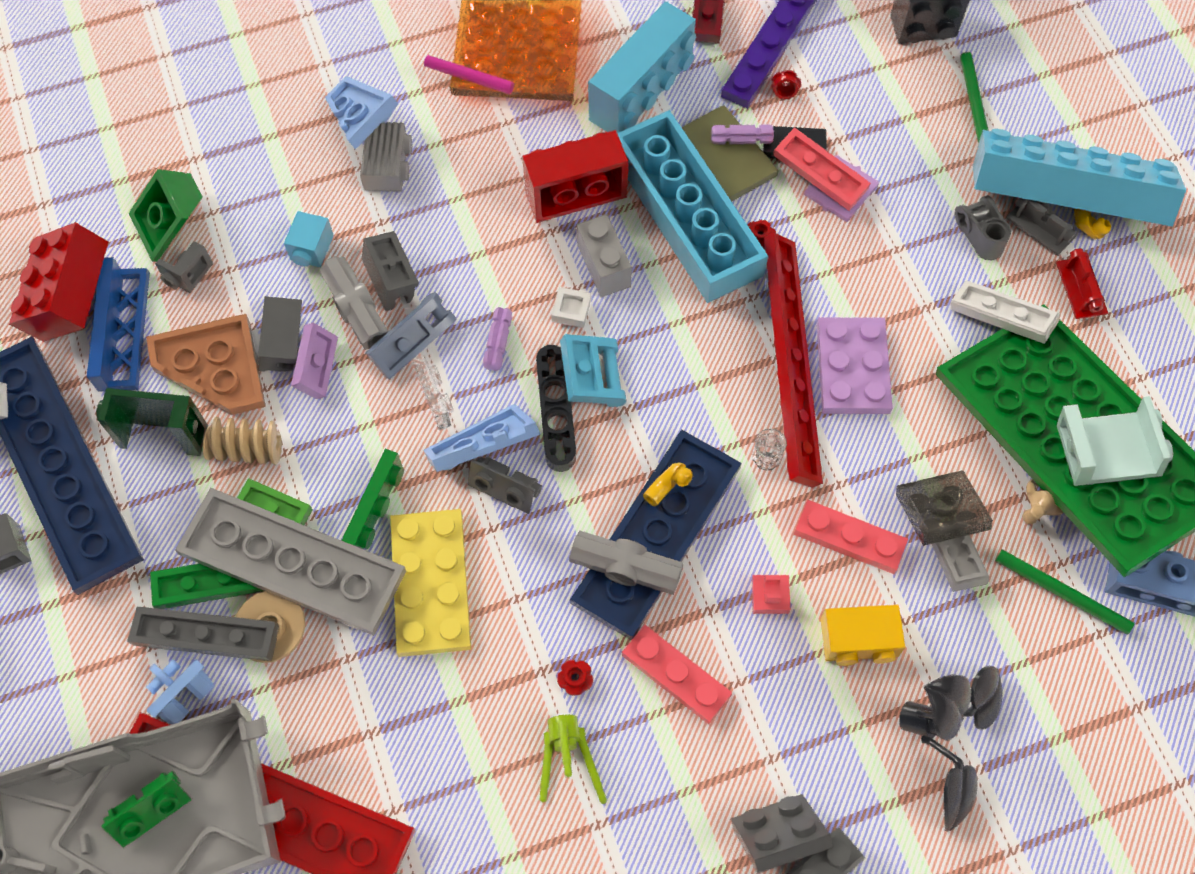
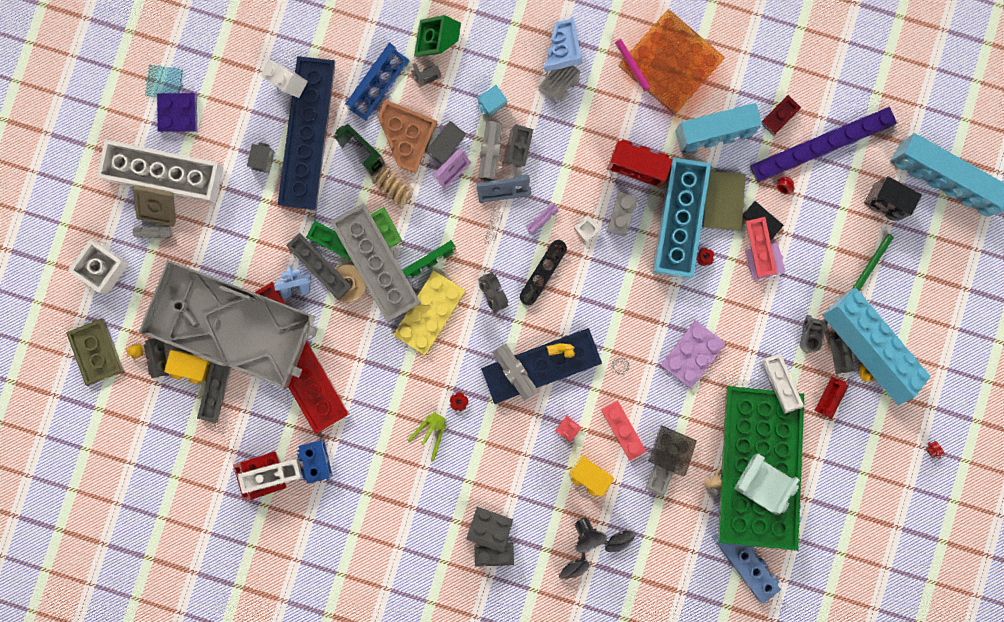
camera: 35 degrees right, 20 degrees up
(58, 282) = (362, 42): red brick -> none
(137, 816) = (240, 329): green hinge -> none
(484, 437) = (502, 266): light blue wing -> none
(584, 373) = (567, 266): medium azure plate -> none
(676, 674) = (501, 432): coral plate -> none
(742, 134) = (739, 199): lavender axle -> none
(792, 362) = (667, 330): red plate -> none
(1065, 592) = (693, 523): green bar -> none

